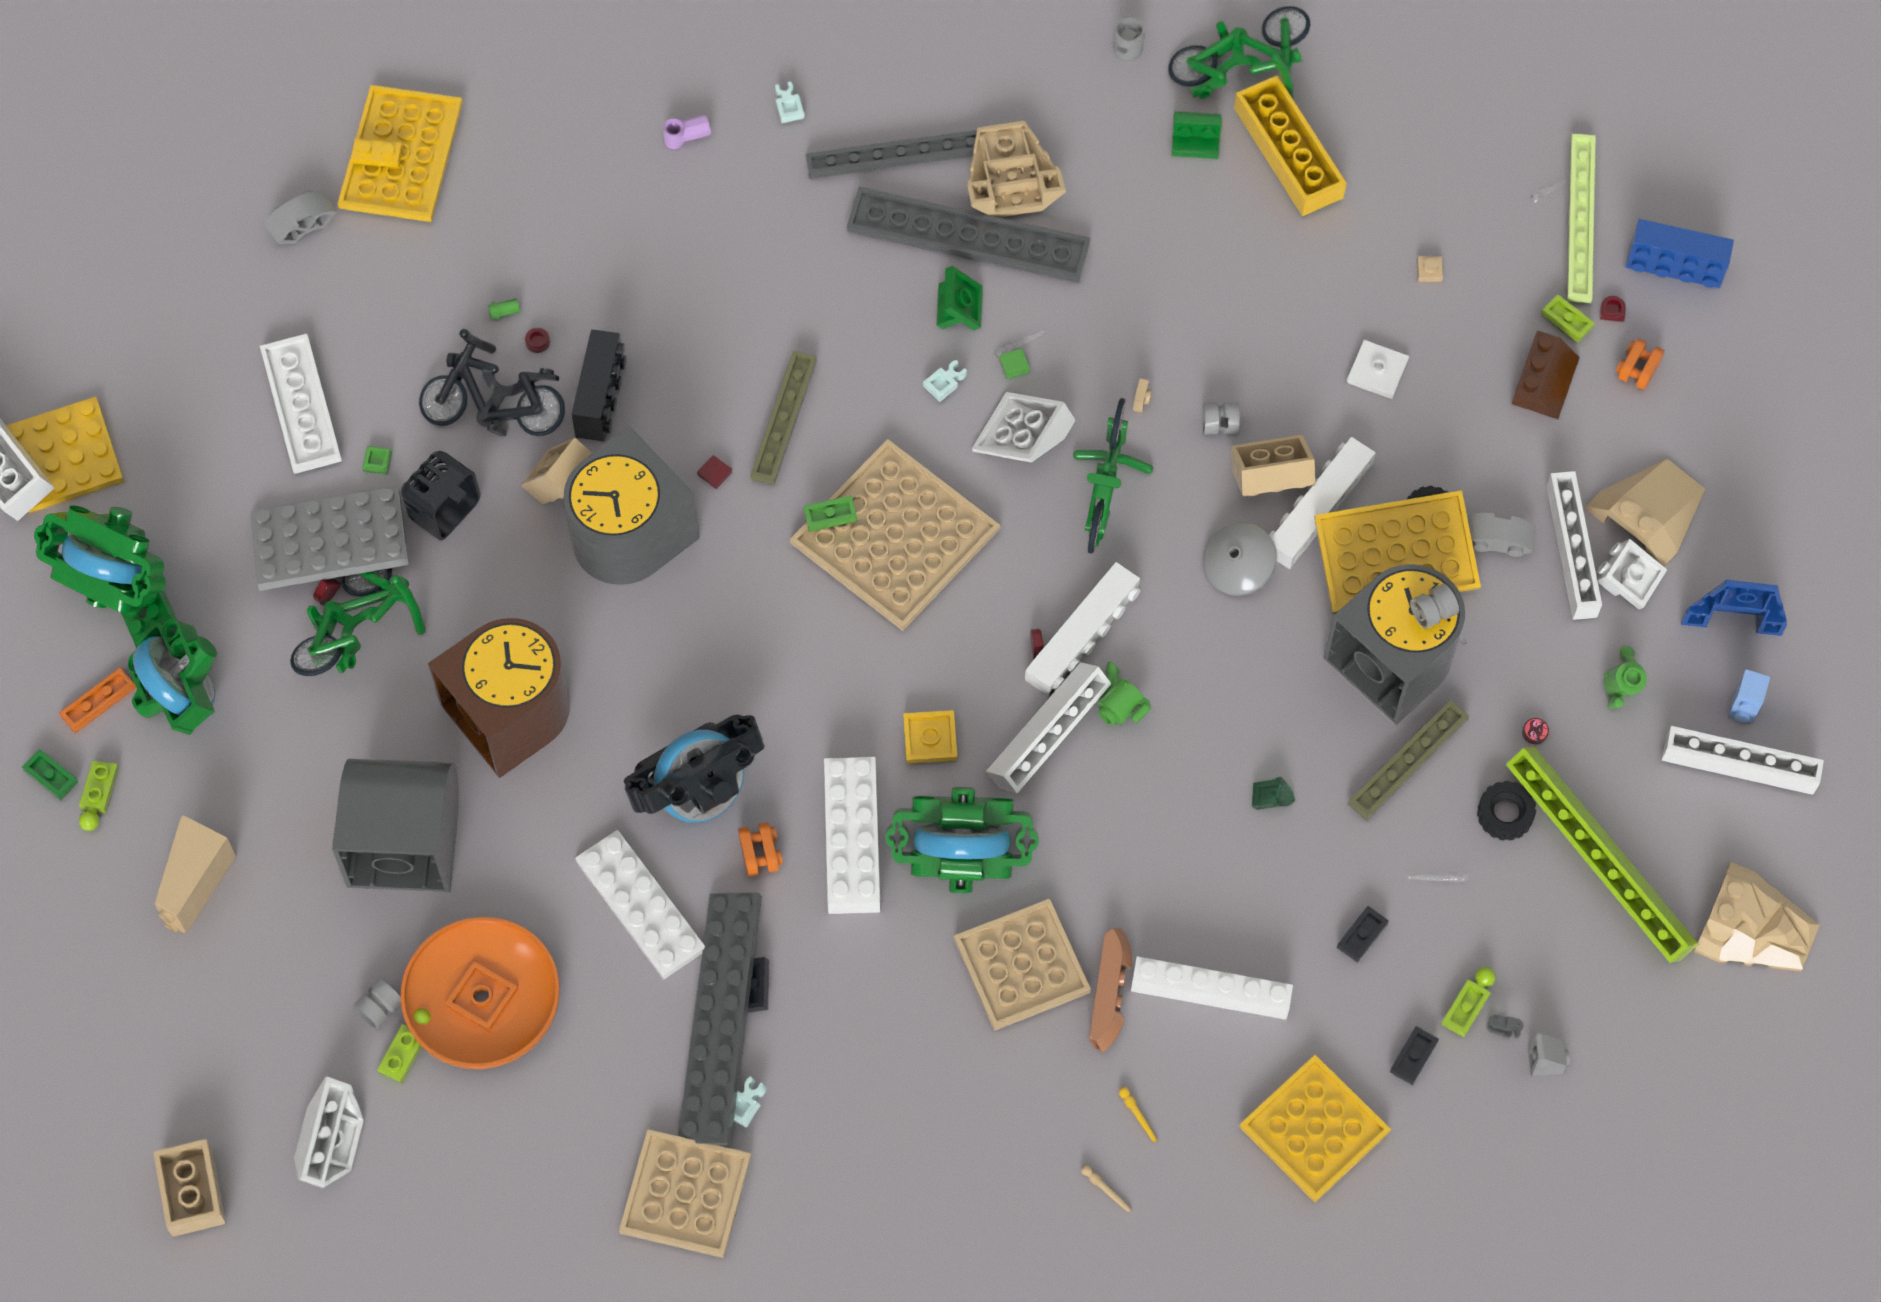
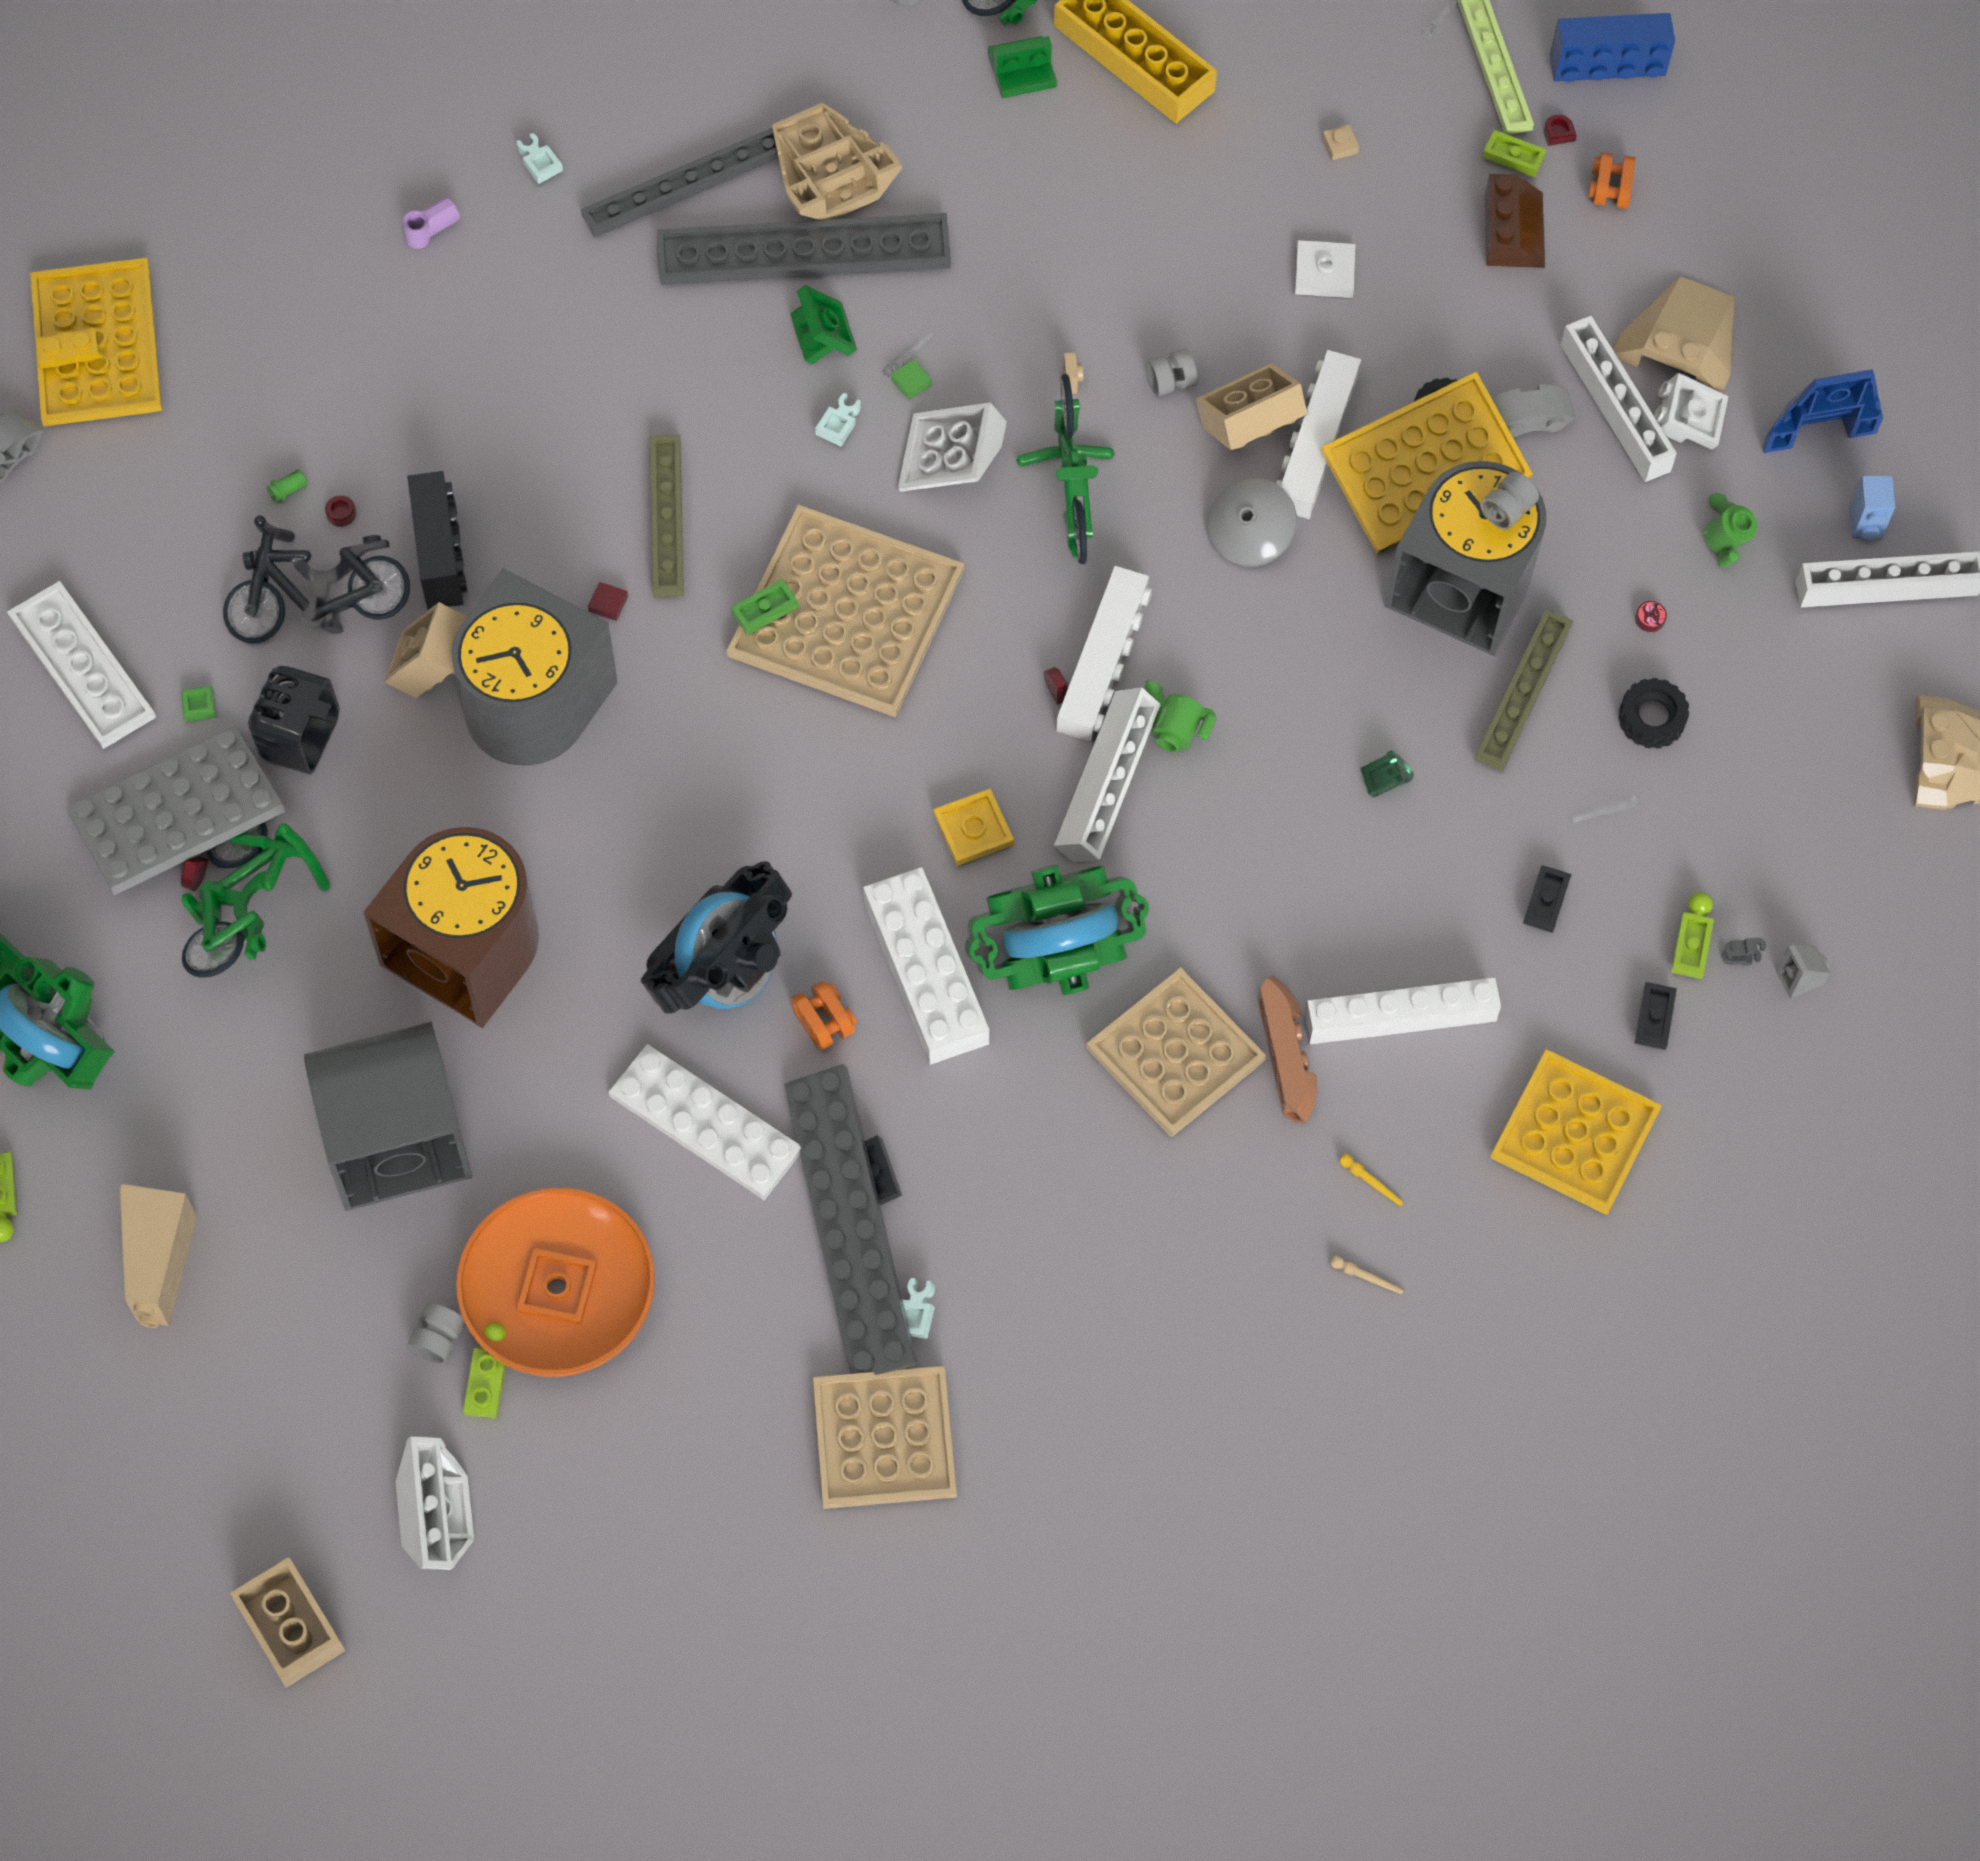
camera: 20 degrees left, 0 degrees up
(1602, 854) = (1778, 728): lime brick -> none

